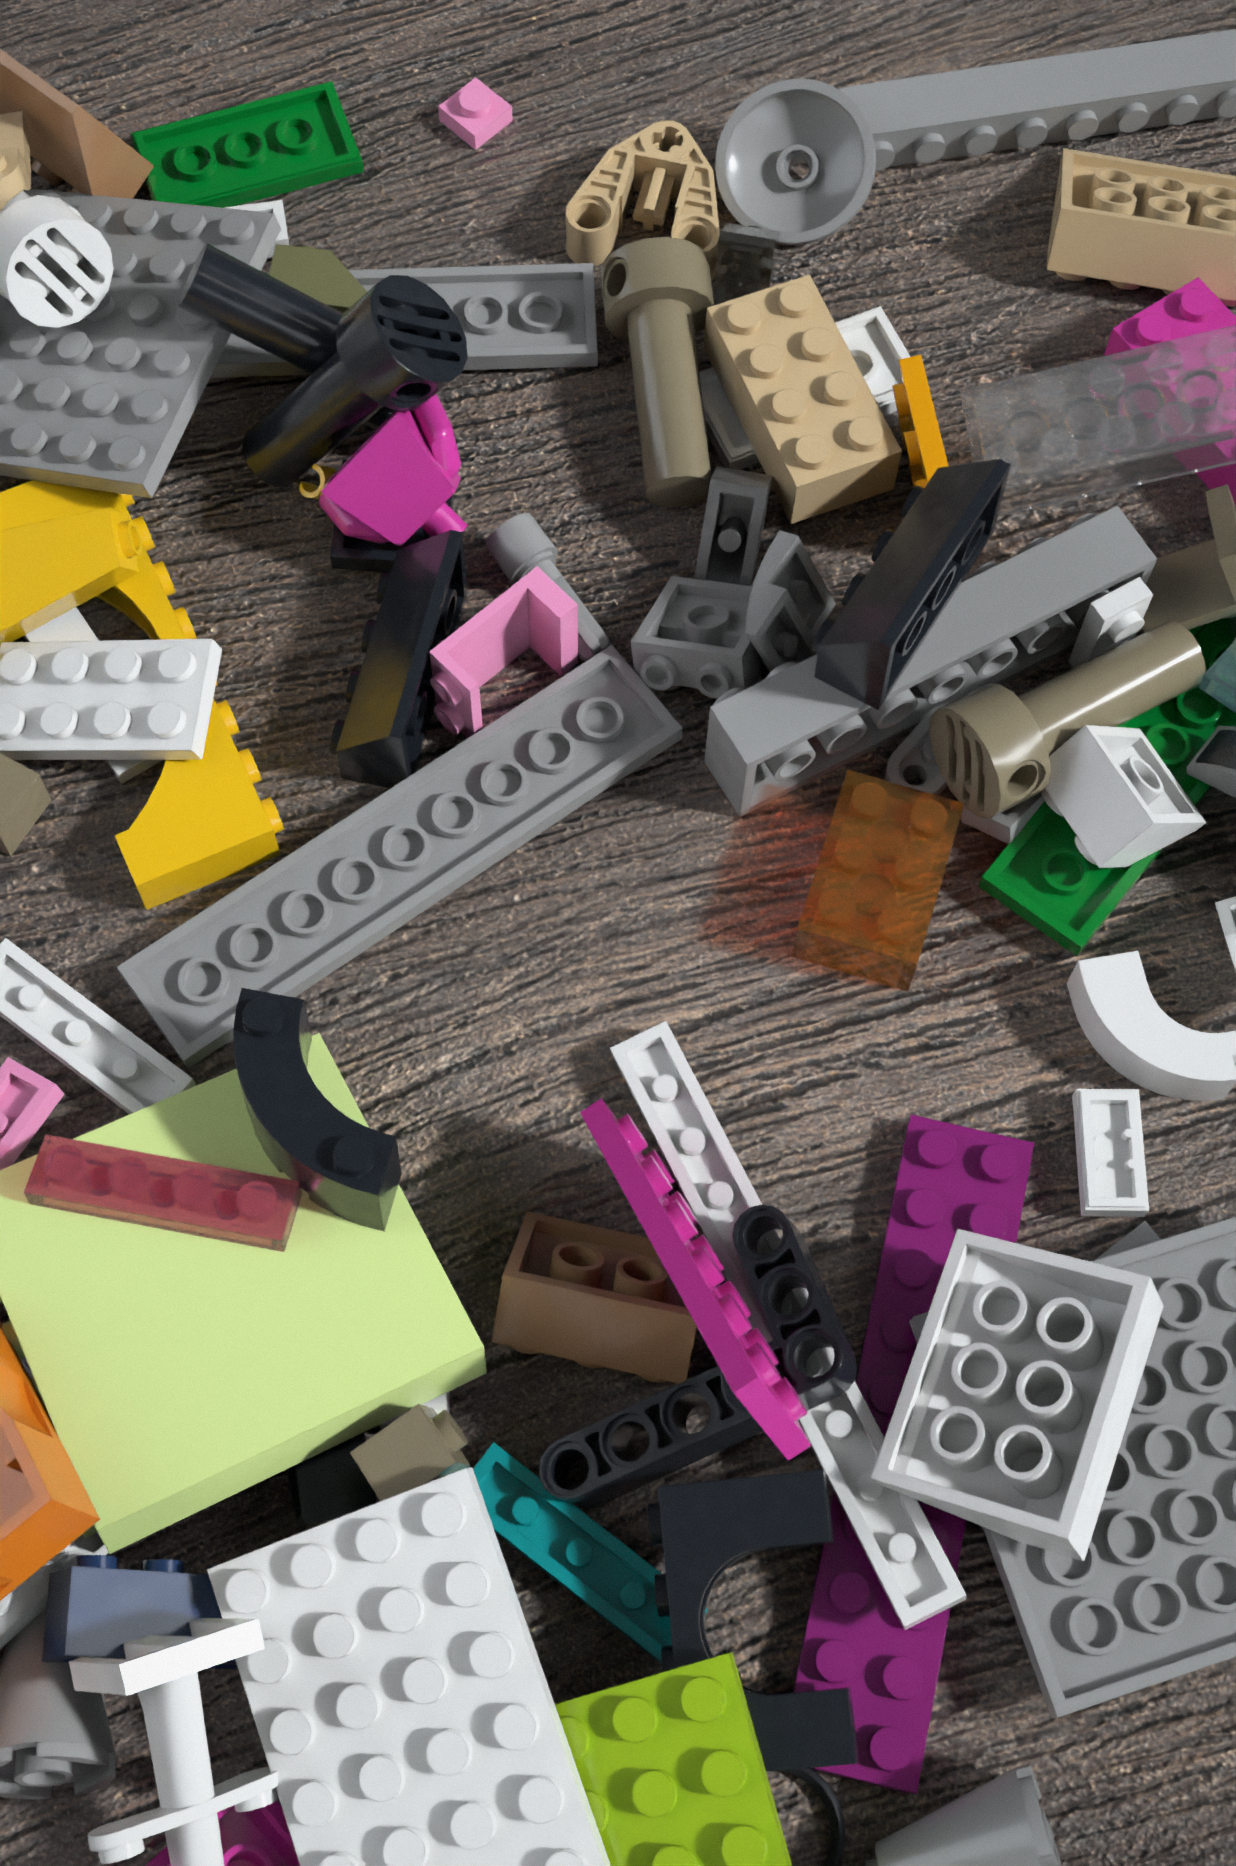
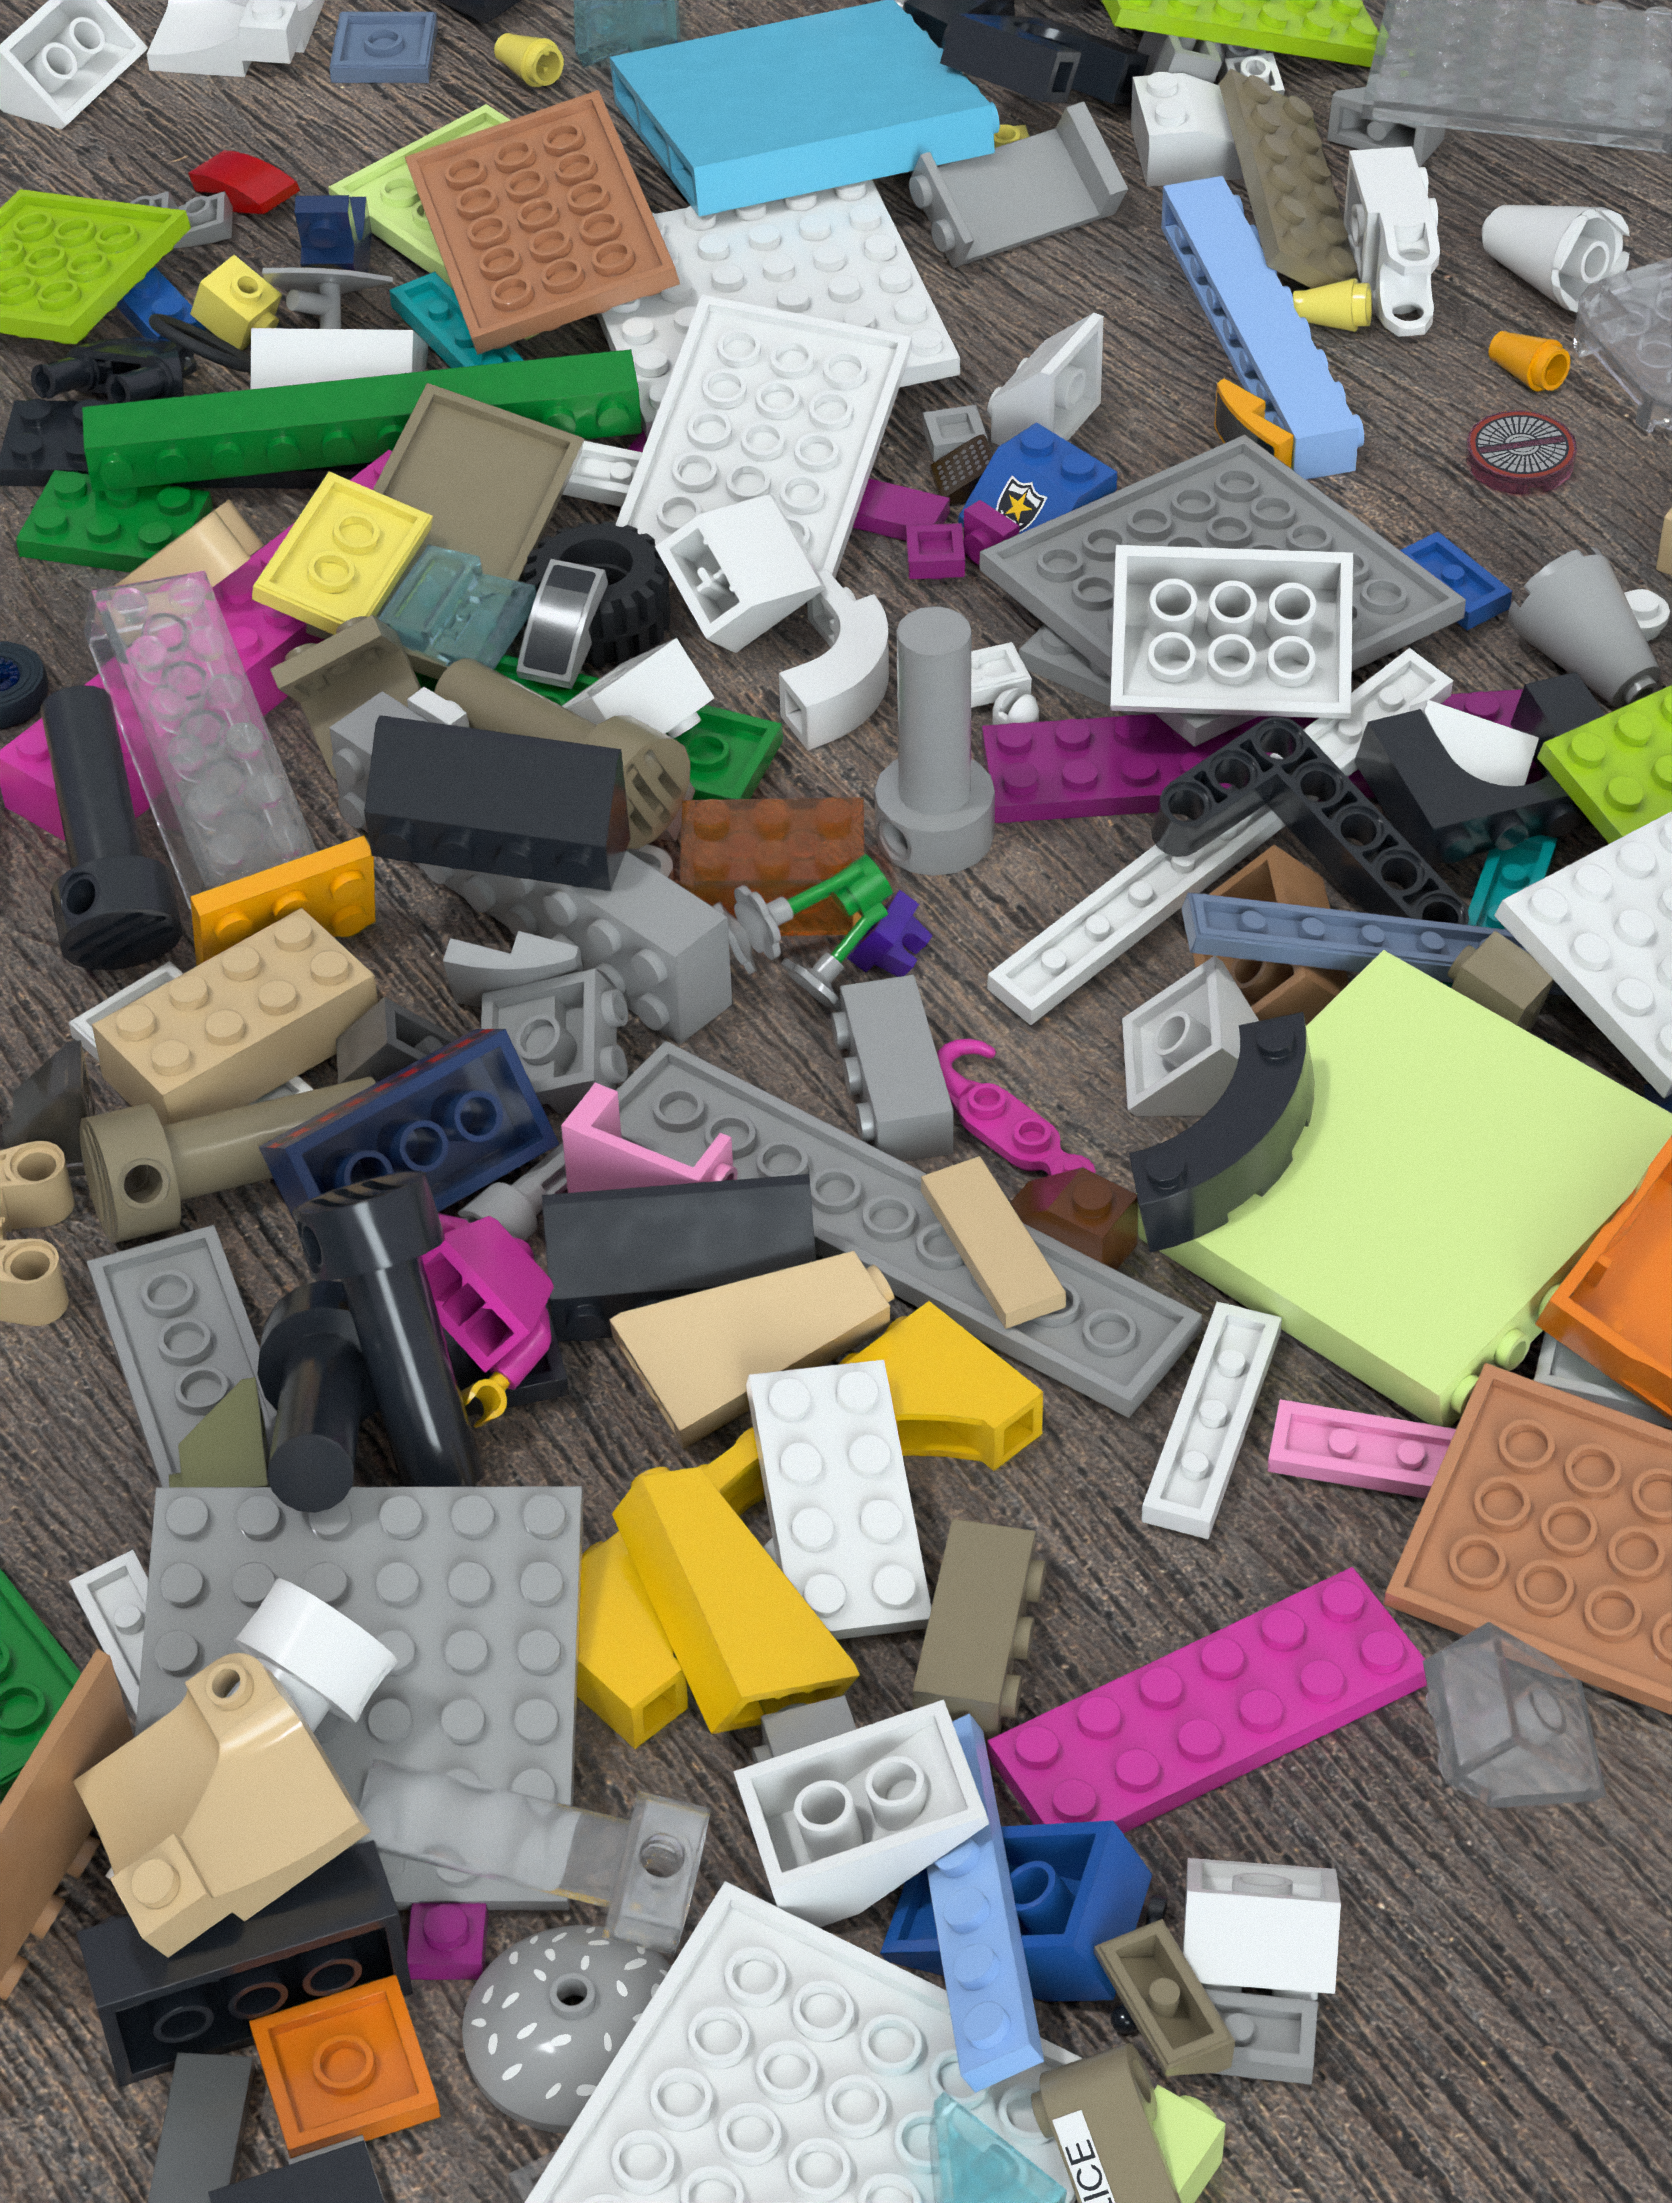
camera: 105 degrees left, 20 degrees down
(164, 1193) = (1362, 1225): clear pink plate -> none
(290, 678) = (704, 1345): none -> tan slope
(326, 908) = (993, 1242): none -> tan tile
(347, 988) = (1082, 1214): none -> reddish brown slope
(492, 988) = (1002, 1119): none -> dark pink piece
(502, 1176) = (1185, 1043): none -> white slope
(536, 1345) = (1325, 936): none -> sand blue tile
(581, 907) = (893, 1069): none -> light grey brick
(604, 485) = (452, 1114): none -> dark blue brick
(697, 1275) = (1265, 804): dark pink plate -> none
(761, 954) = (886, 939): none -> dark purple tile
(772, 906) = (854, 889): none -> plant
(798, 1610) = (1481, 746): none -> white slope
(919, 1038) = (934, 799): none -> light grey piece
(981, 331) = (113, 901): none -> black piece
(1042, 1195) = (1020, 706): none -> white hinge
(1134, 1745) = (1483, 591): none -> blue plate

